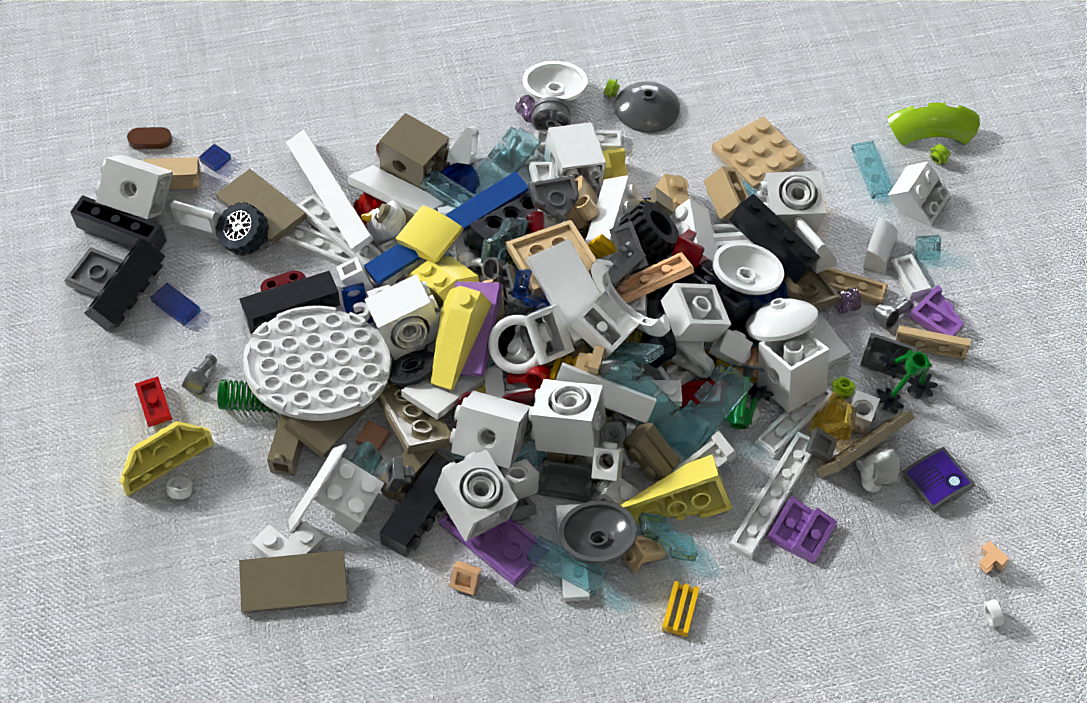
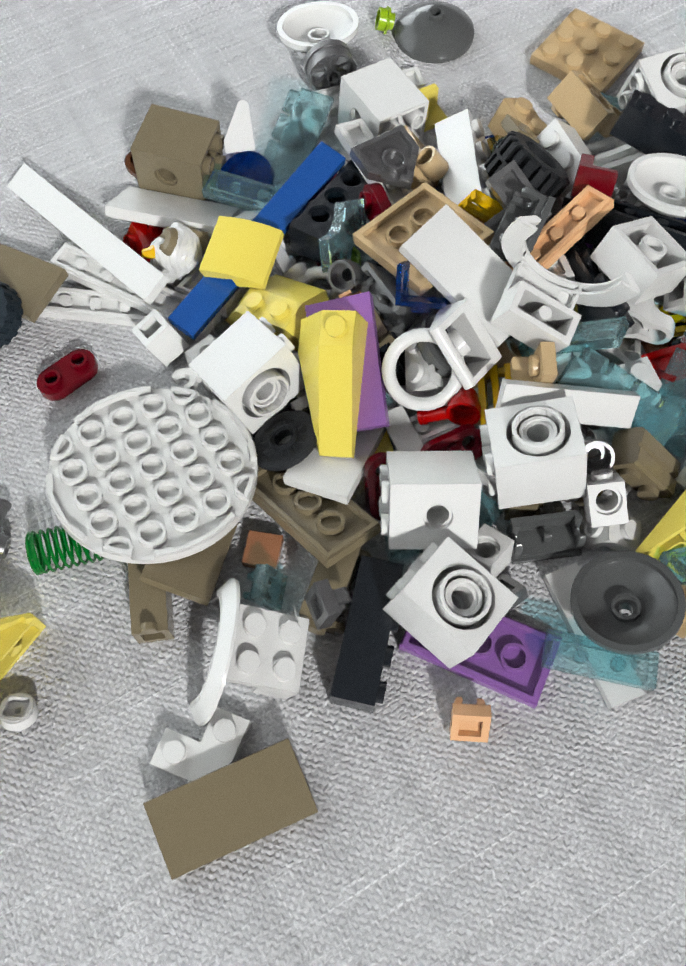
camera: 15 degrees left, 10 degrees up
(310, 291) = (105, 374): black brick -> none
(349, 301) = (164, 371): clear blue bracket -> none
(524, 107) = (292, 67): clear purple wheel -> none

